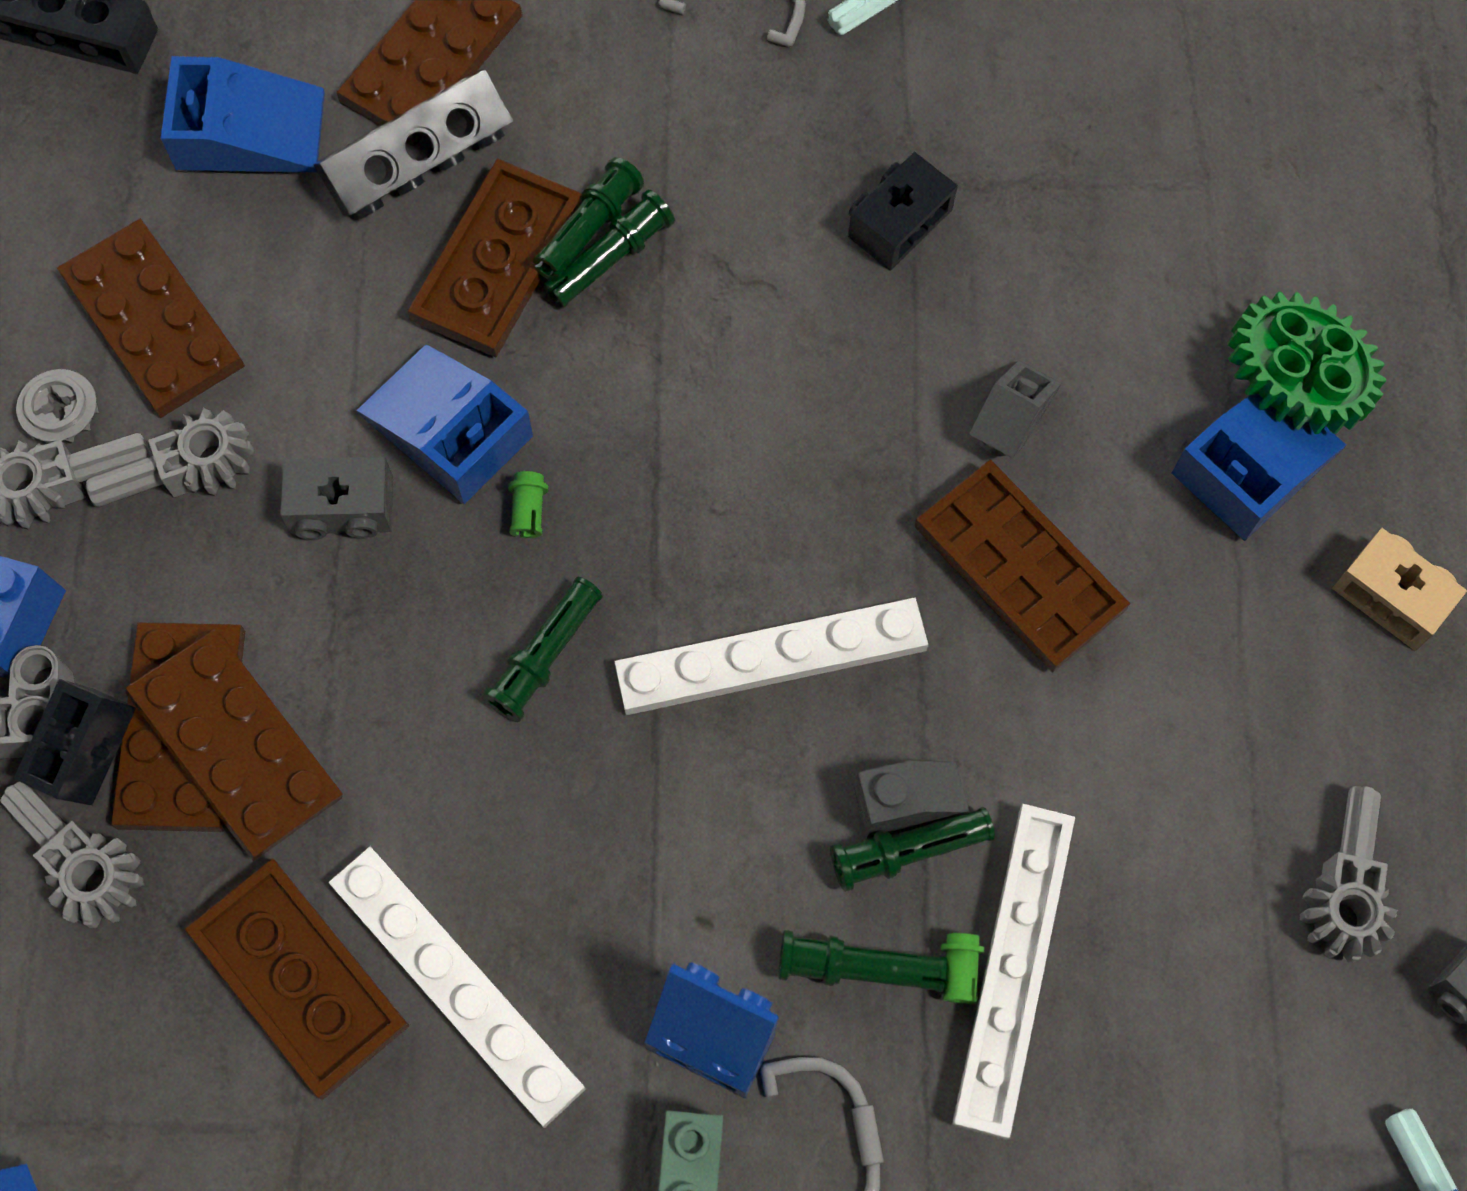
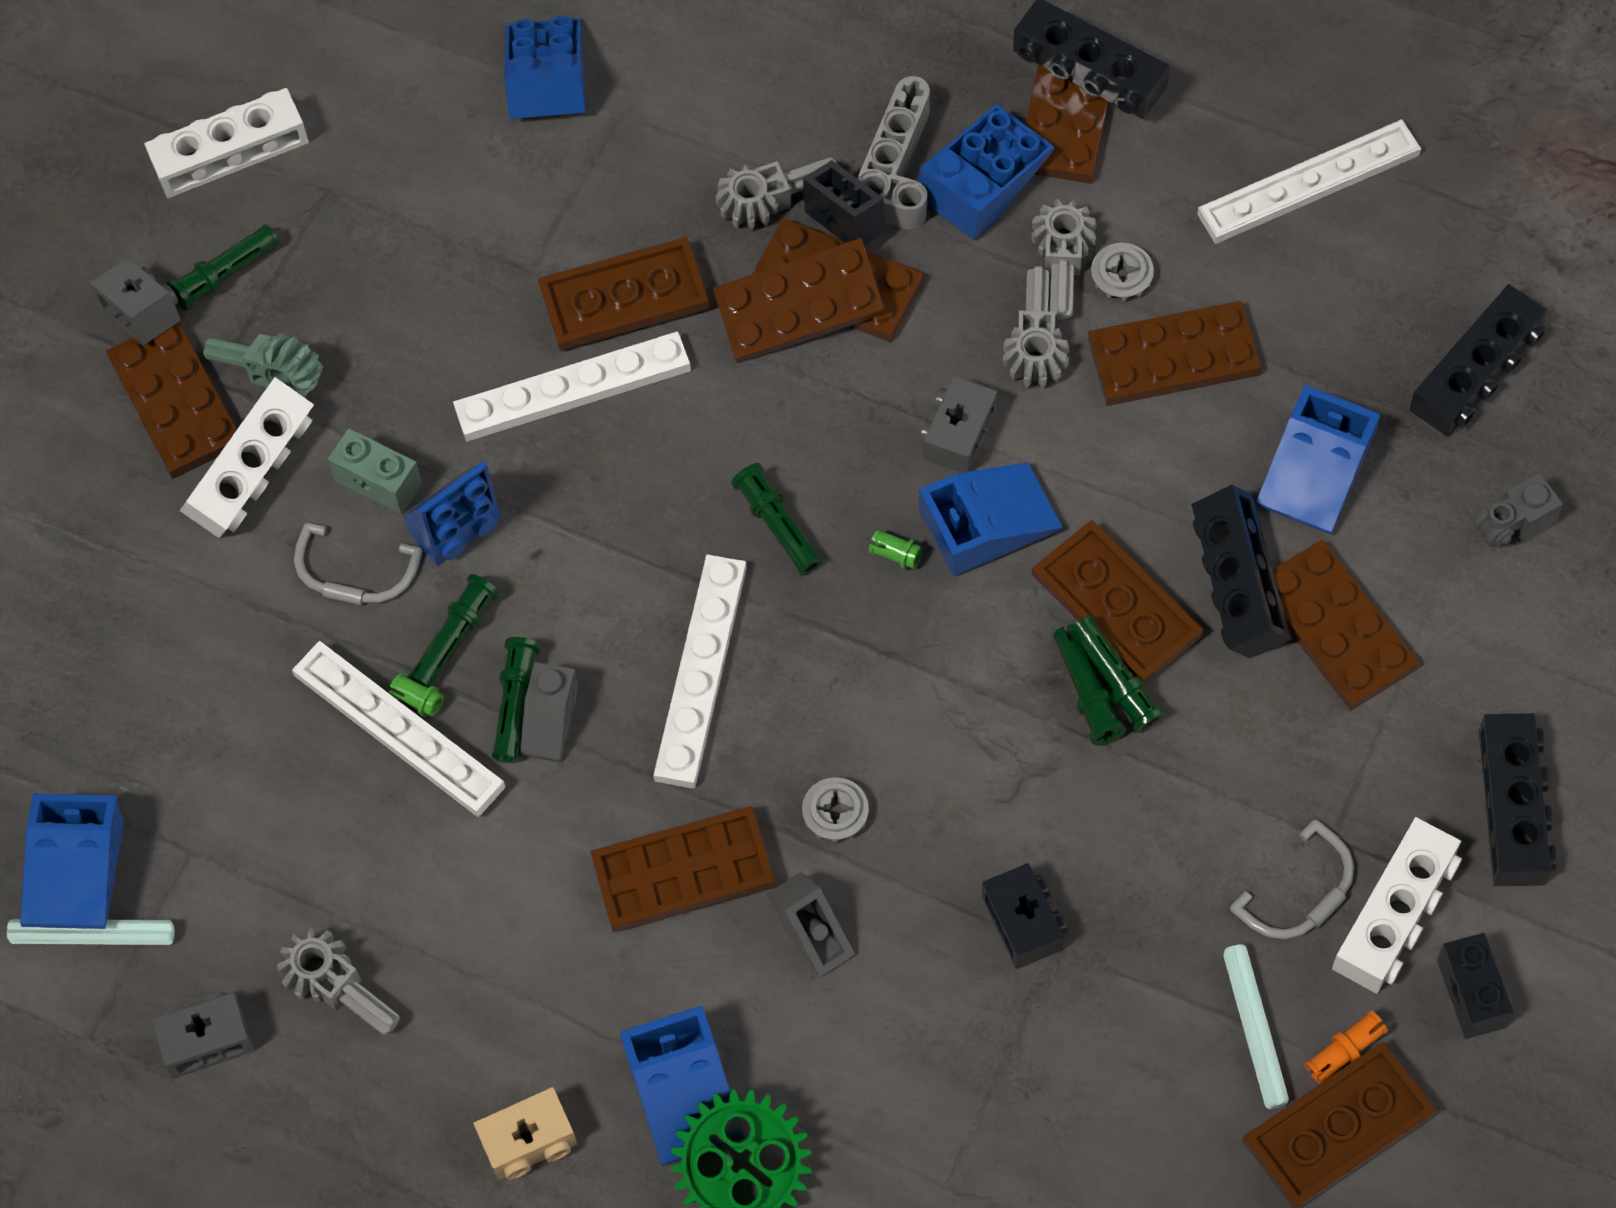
camera: 120 degrees right, 5 degrees down
(880, 423) = (821, 797): none -> light grey gear

